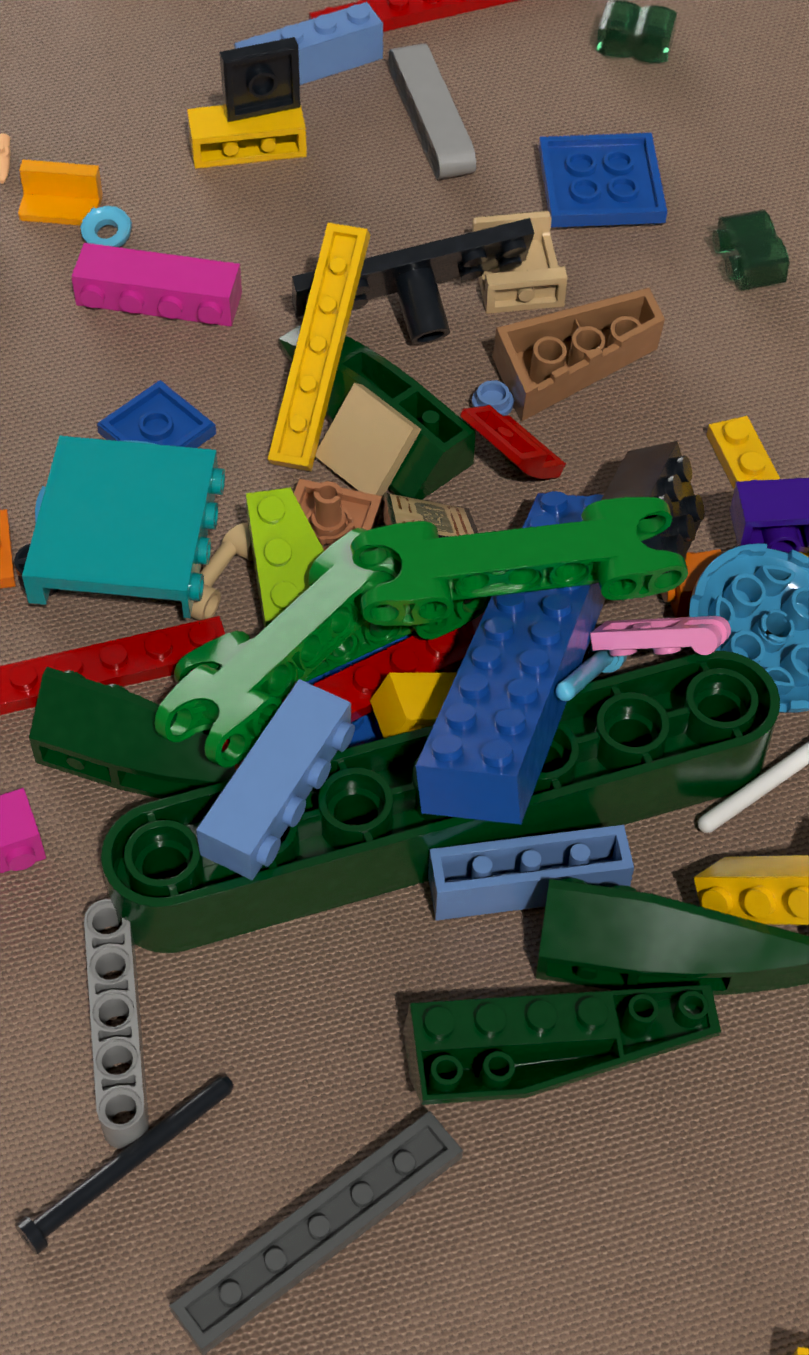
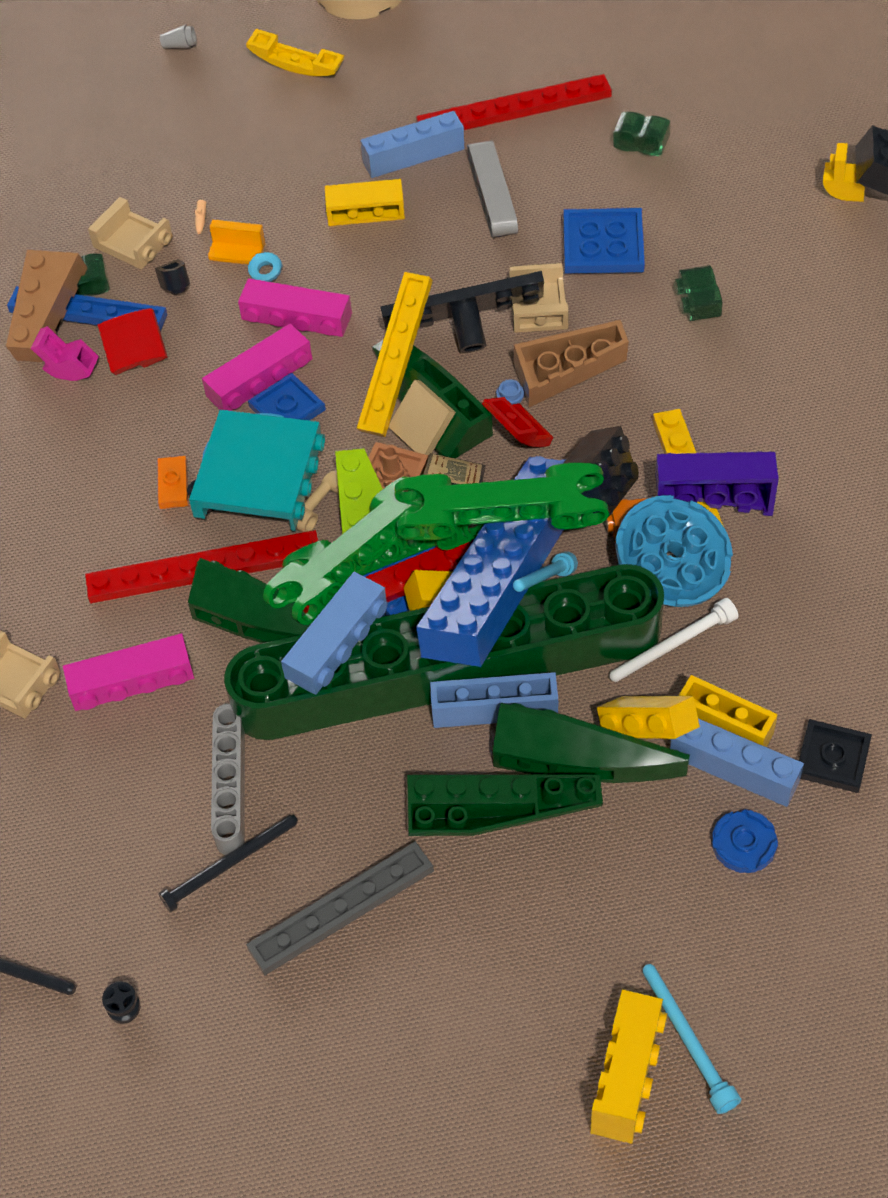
camera: 10 degrees right, 0 degrees up
(107, 375) = (257, 368): none -> dark pink brick
(260, 79) = (373, 168): black tile -> none
(661, 634) = (594, 552): bright pink plate -> none

